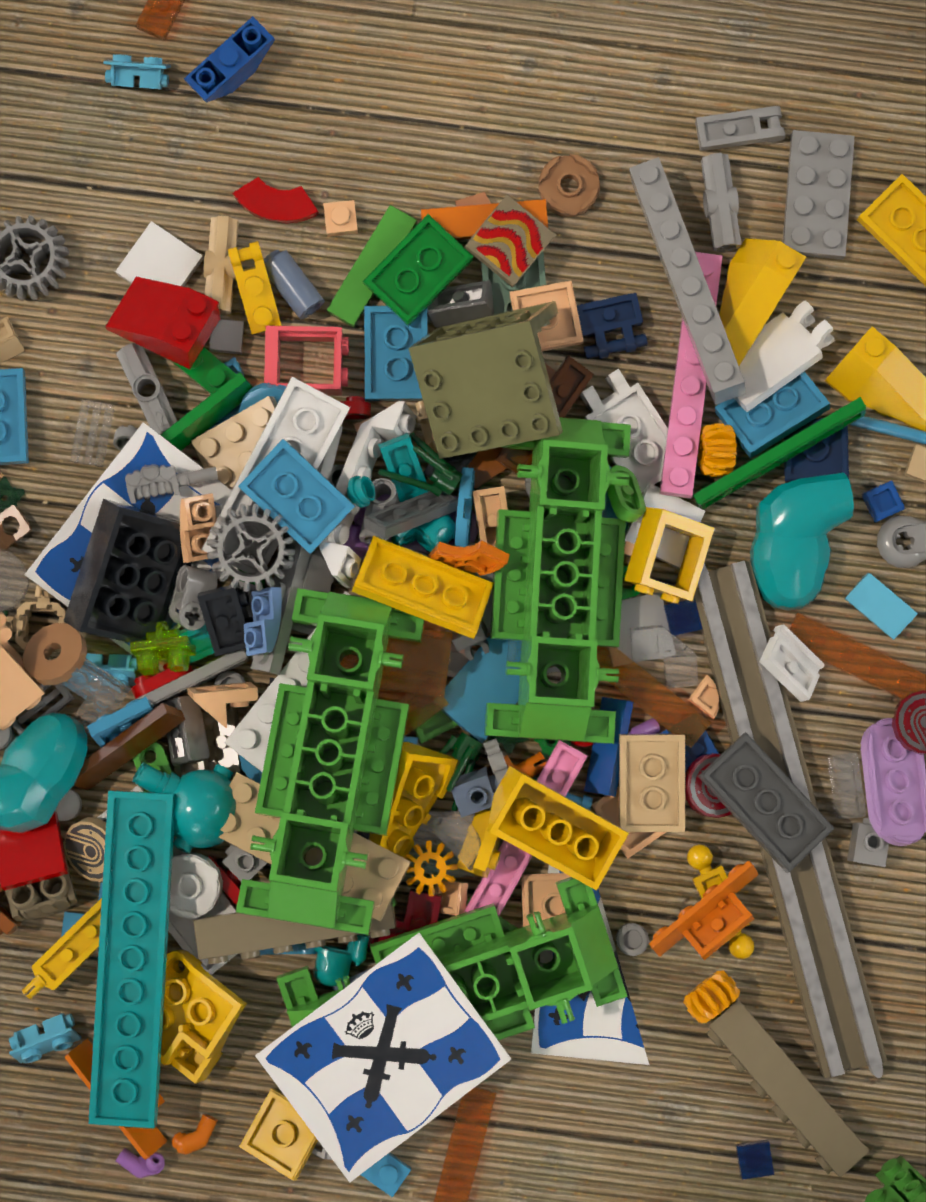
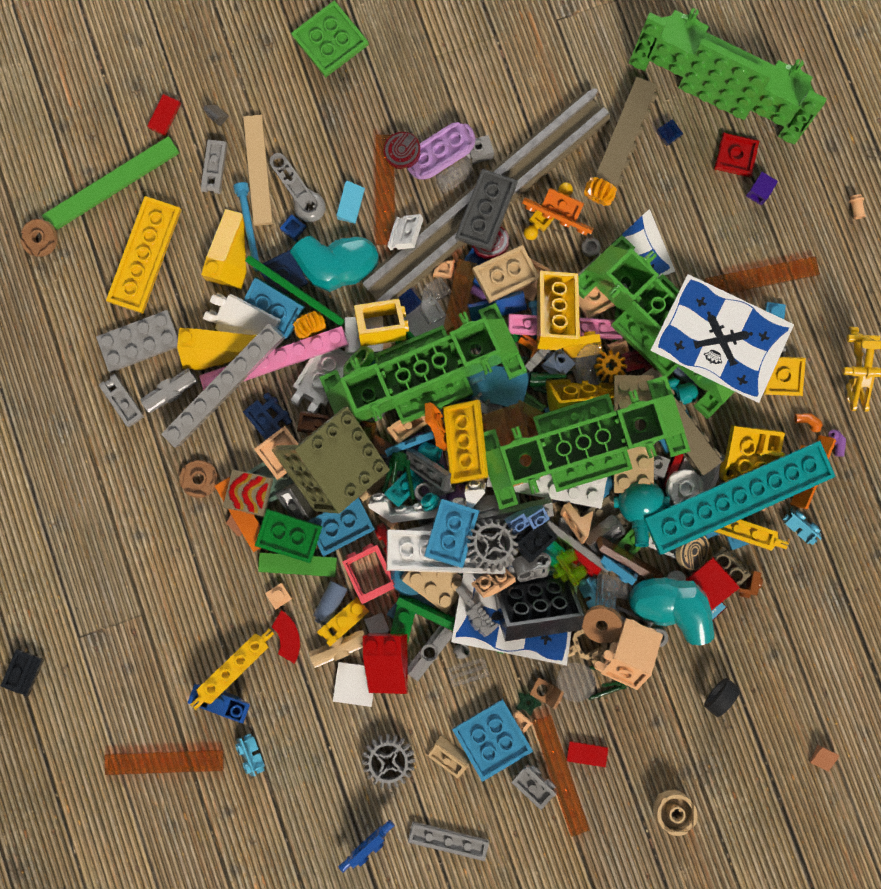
camera: 110 degrees left, 0 degrees up
(268, 100) = (232, 669): none -> yellow plate

